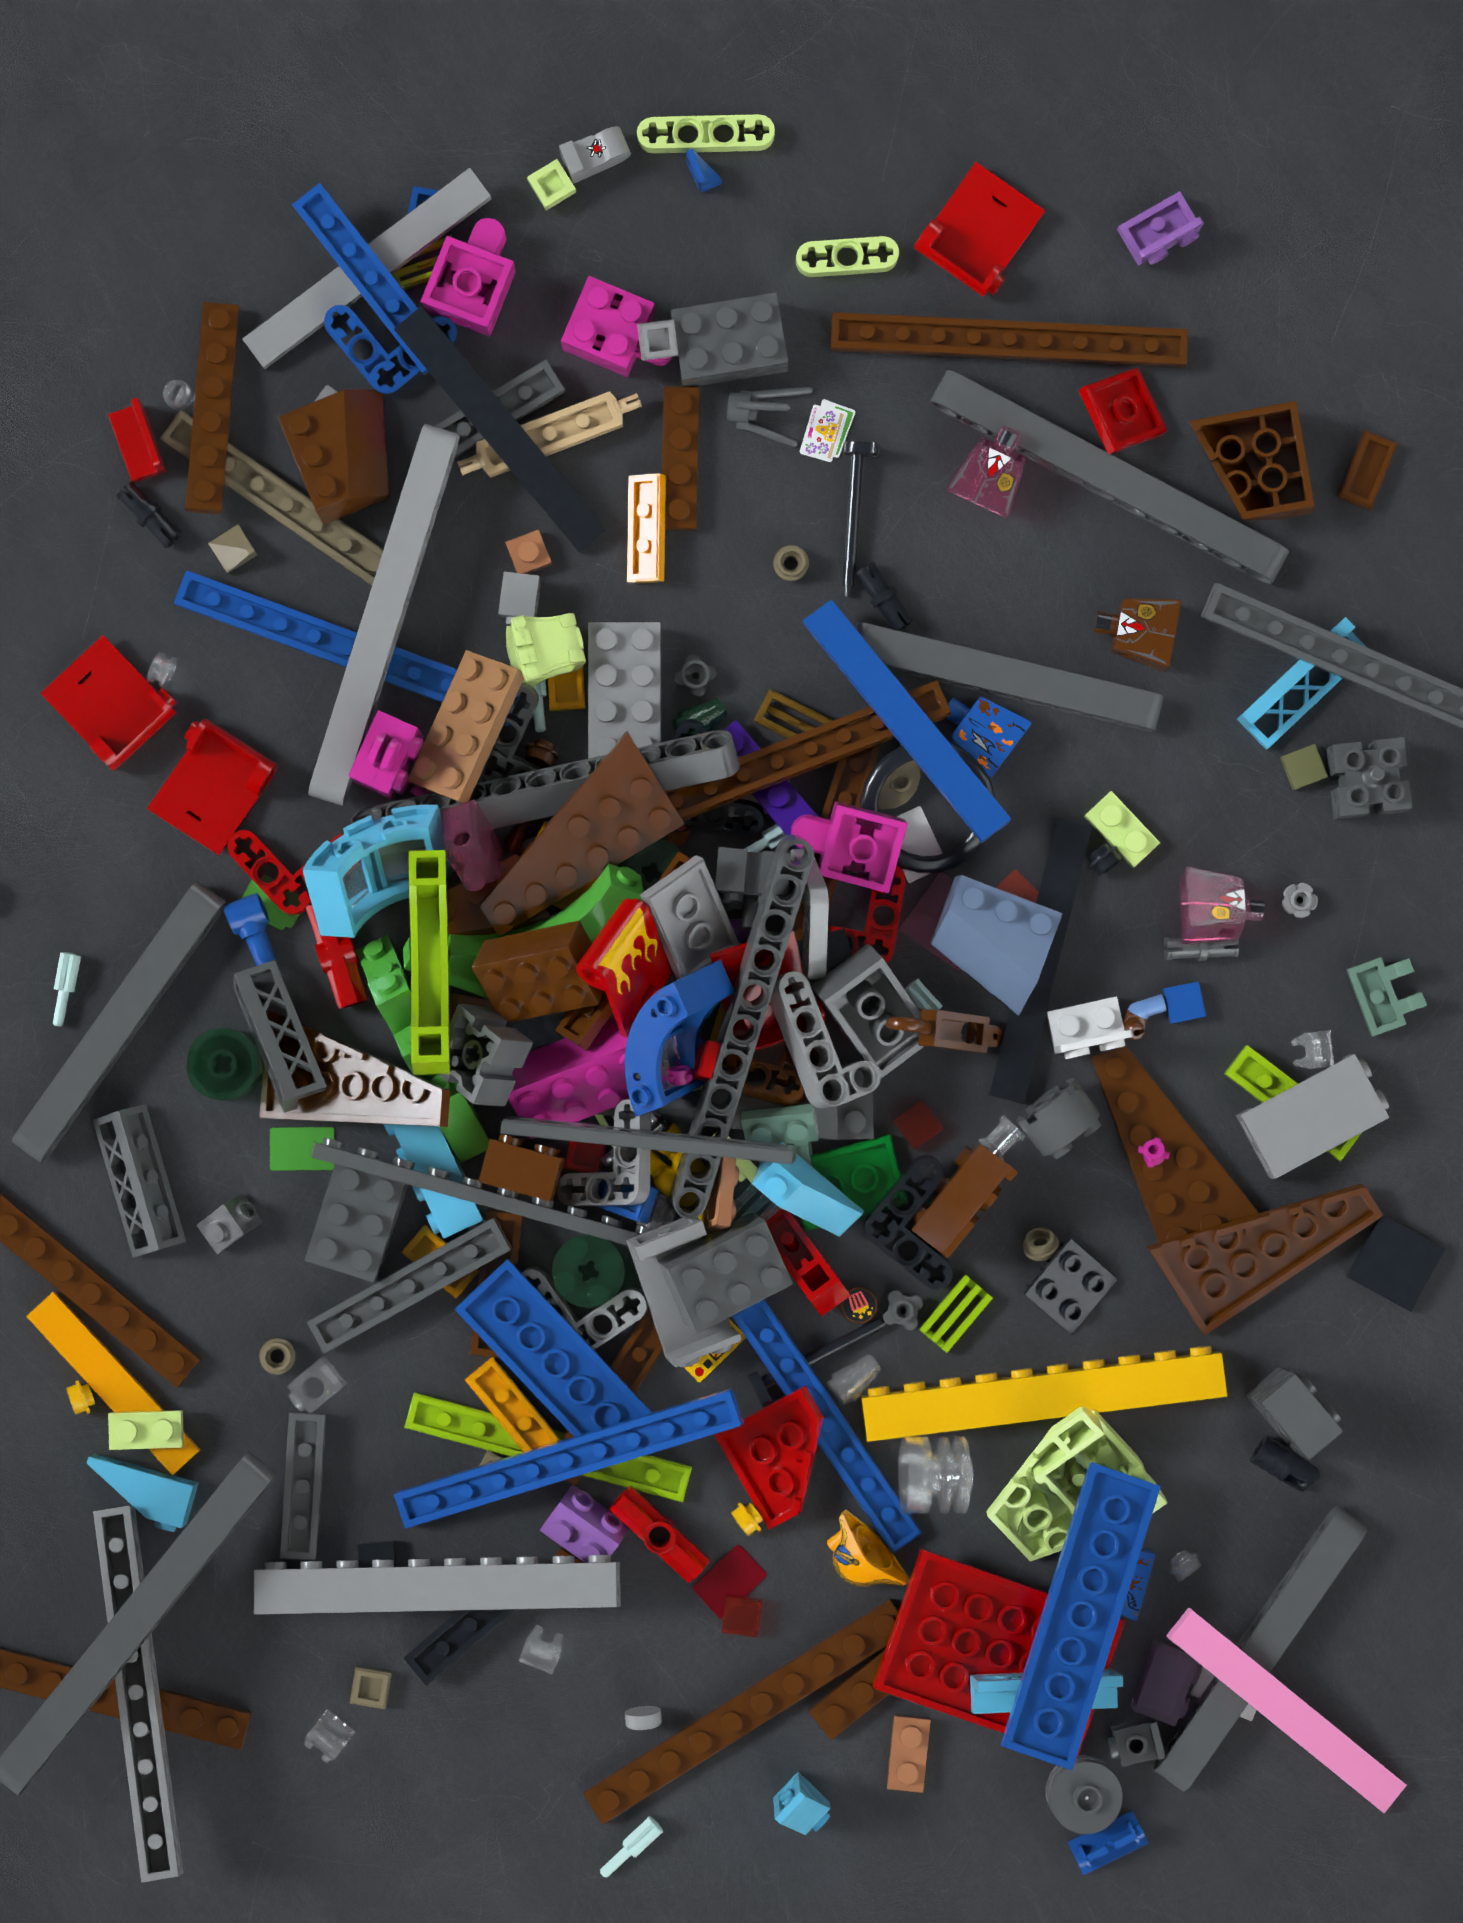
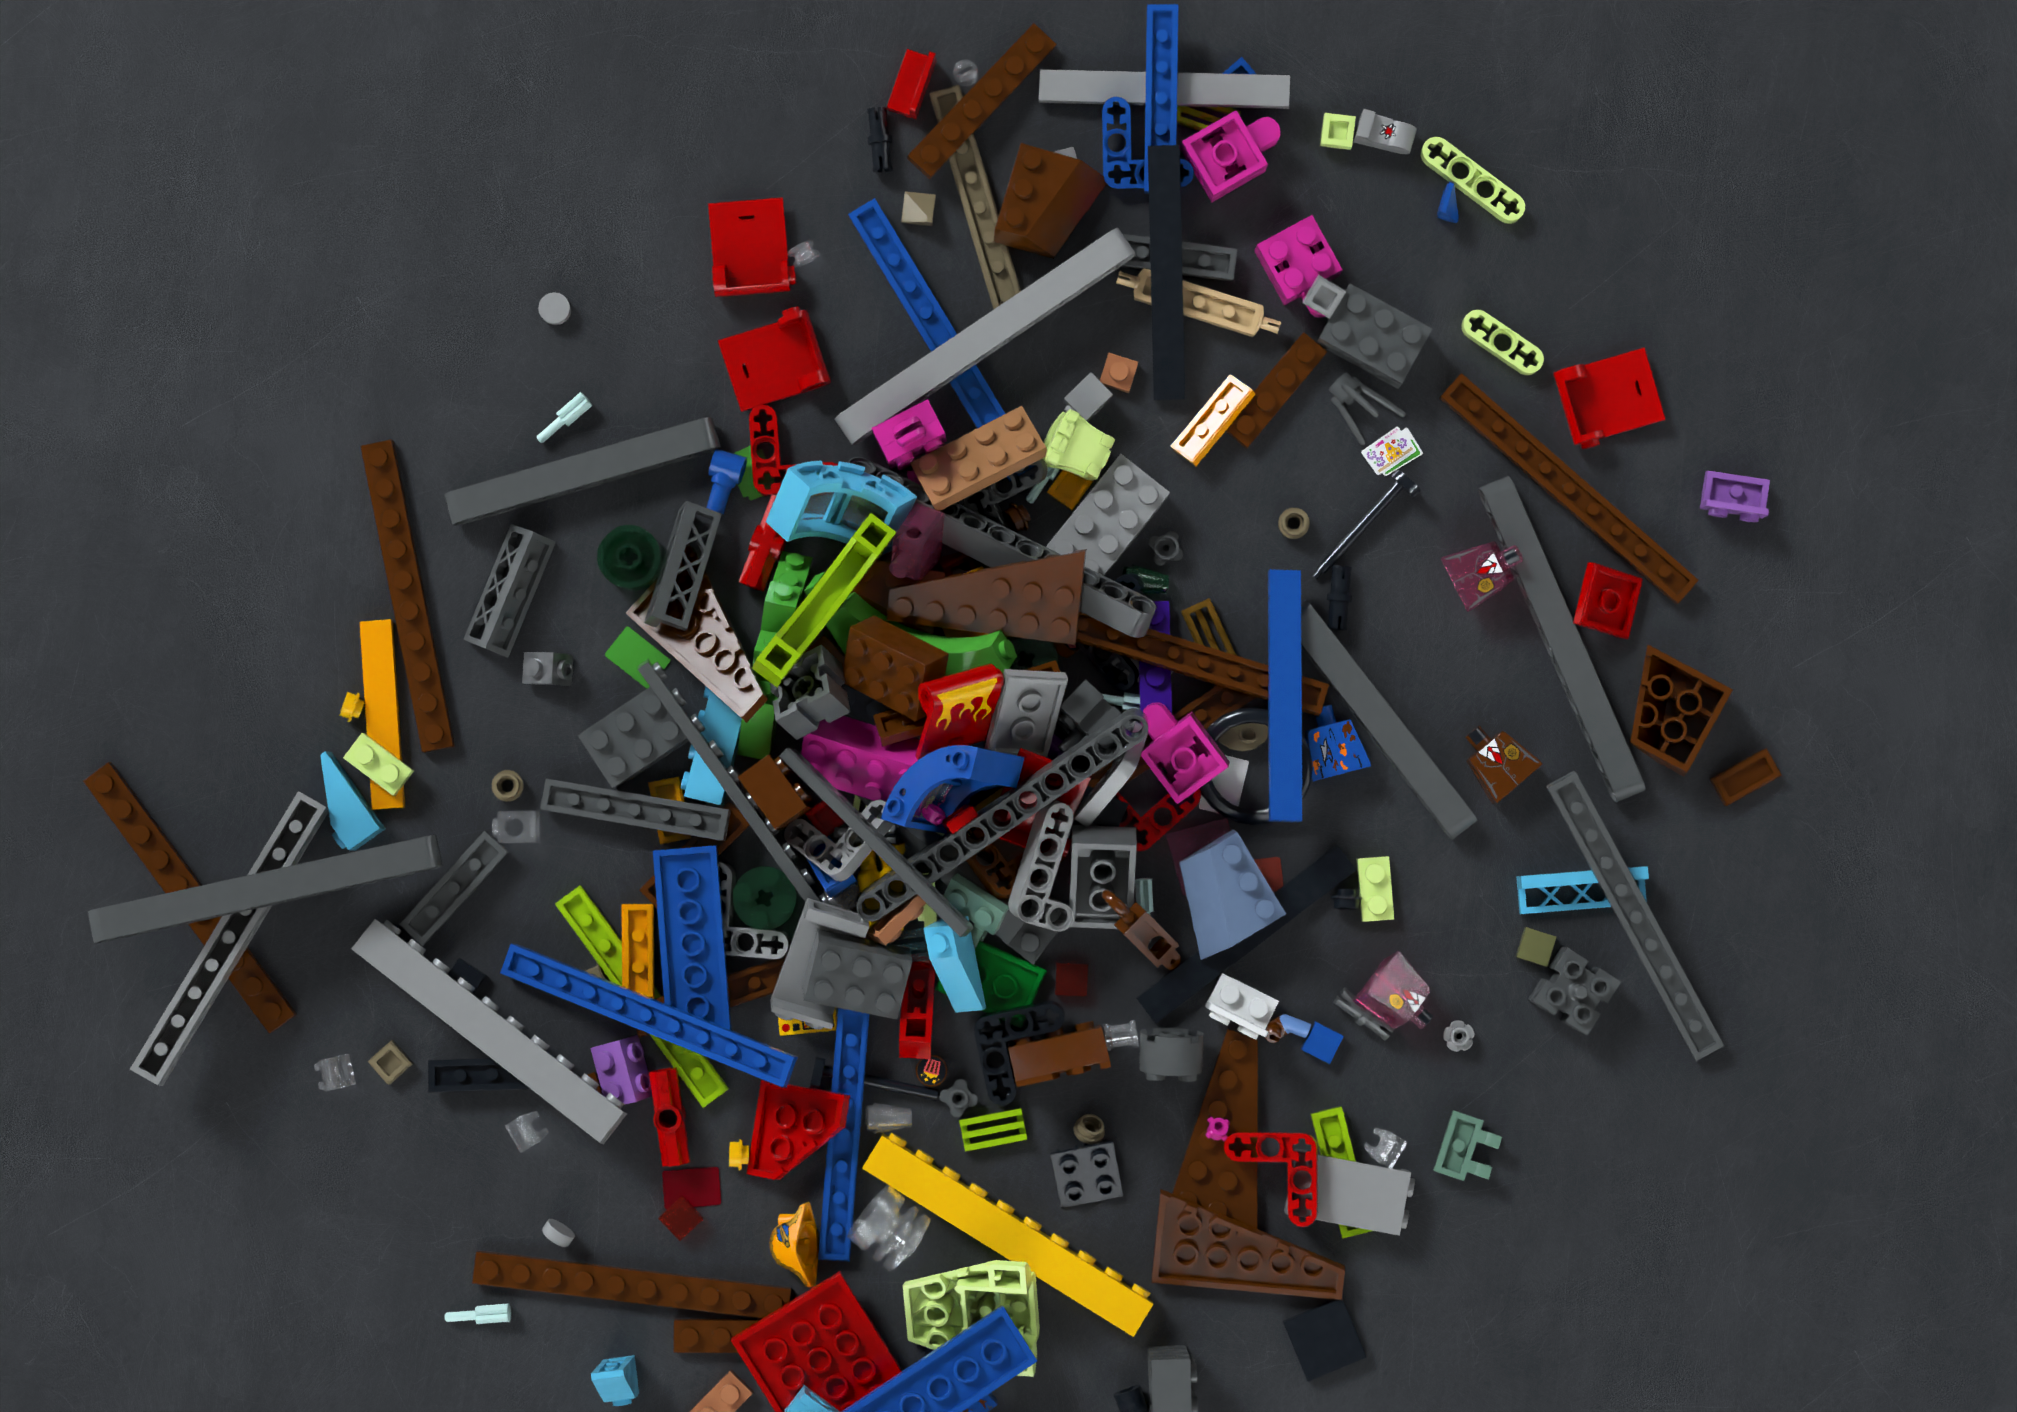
camera: 45 degrees right, 0 degrees up
(1232, 1126) = (1285, 1154): none -> red beam

